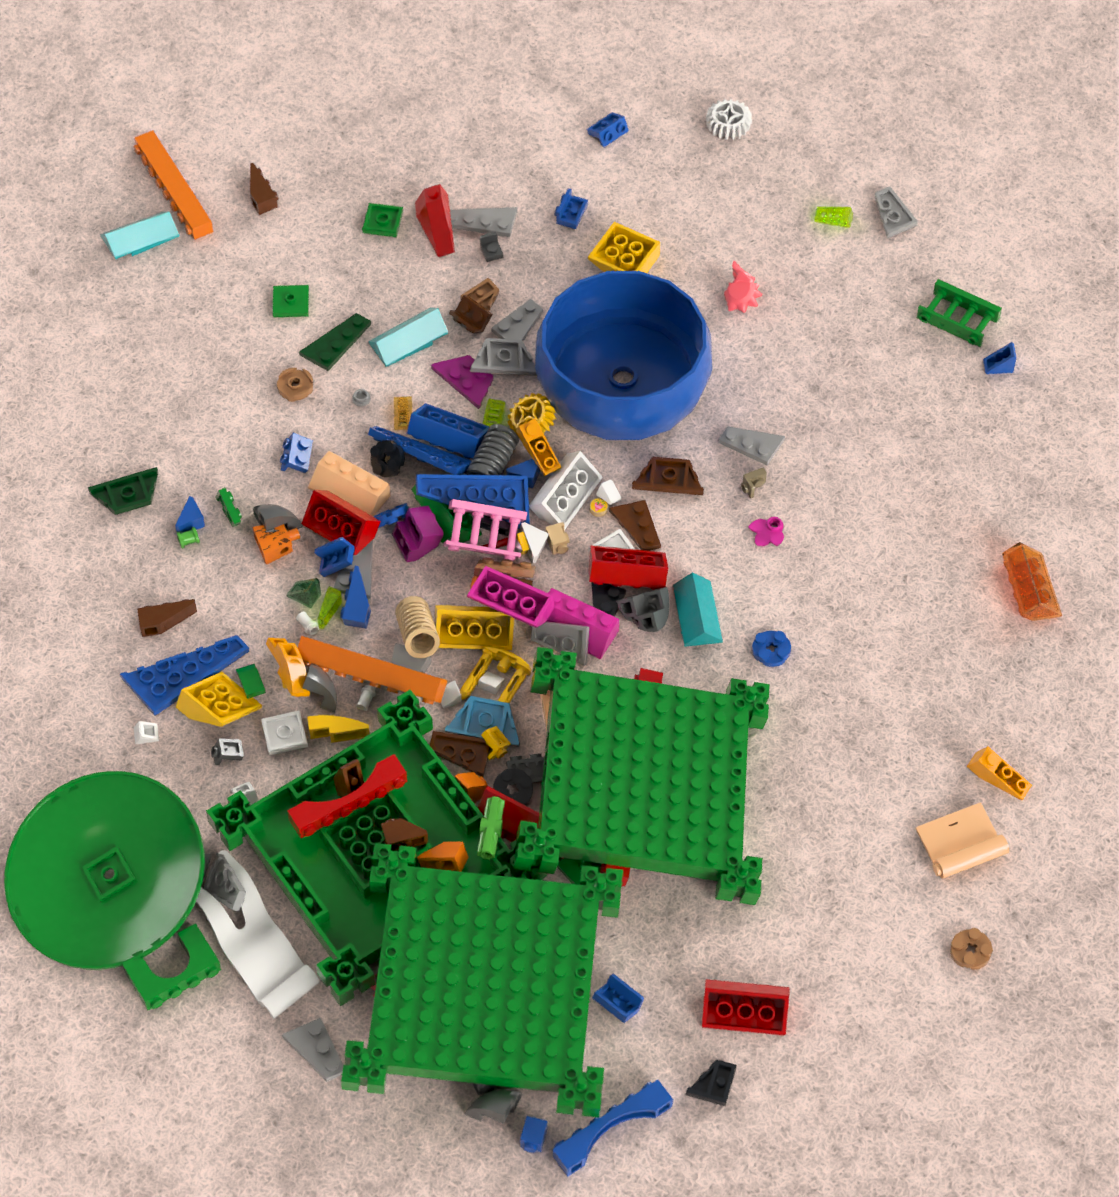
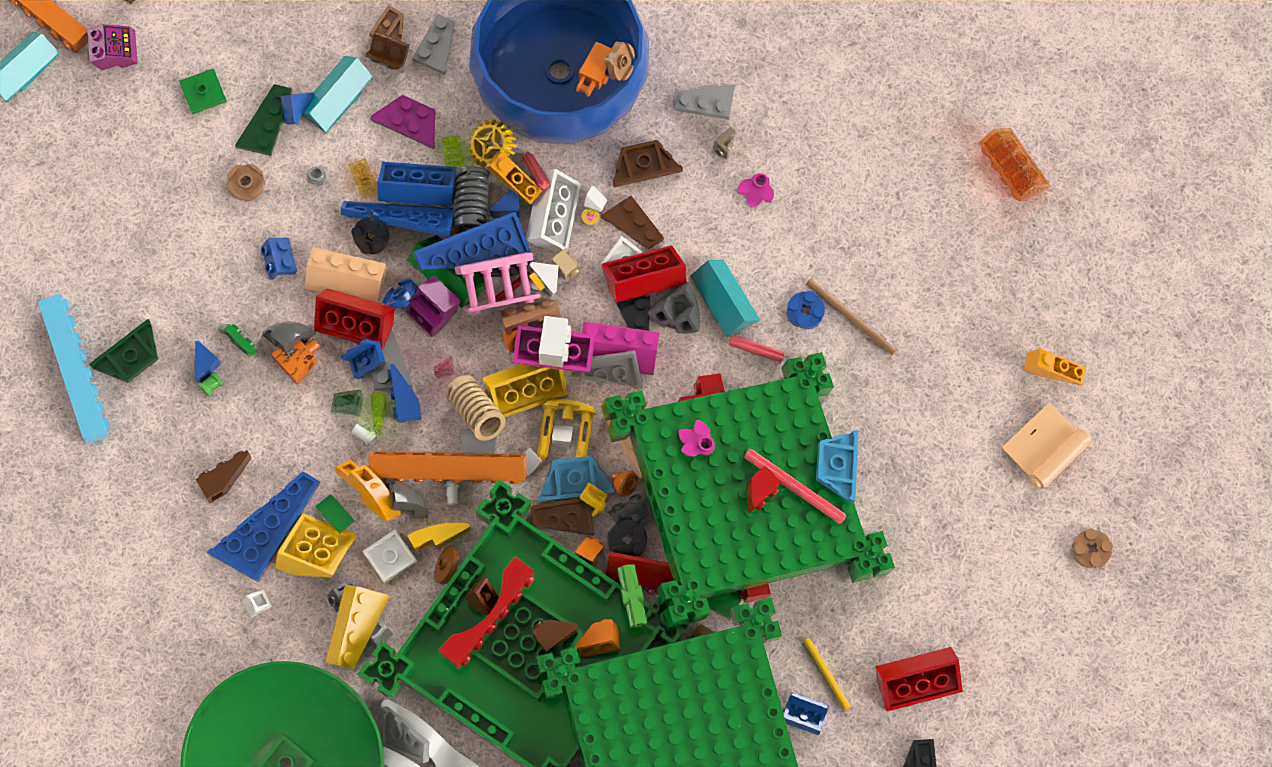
camera: 25 degrees left, 15 degrees up
(73, 487) = (73, 368): none -> medium azure brick
(226, 240) = (112, 46): none -> magenta piece
(226, 774) = (354, 624): none -> yellow wedge
(333, 750) = (445, 566): none -> dark orange plate
(367, 333) = (295, 105): none -> blue slope
(406, 588) = (445, 367): none -> clear pink slope
(504, 357) = (439, 88): light grey wing -> none
(510, 584) = (553, 341): none -> white brick
(532, 740) = (625, 482): none -> orange brick
(563, 450) = (536, 171): none -> coral axle
(607, 709) = (694, 439): none -> dark pink plate
(647, 365) = (594, 70): none -> orange brick
(655, 771) = (761, 486): none -> red slope
(656, 973) = (826, 673): none -> yellow bar
(663, 360) = (620, 61): none -> medium nougat plate
(689, 784) = (797, 487): none -> coral axle
(708, 665) = (756, 348): none -> coral axle
(740, 781) = (839, 464): none -> dark azure wing
(832, 695) = (878, 339): none -> medium nougat bar

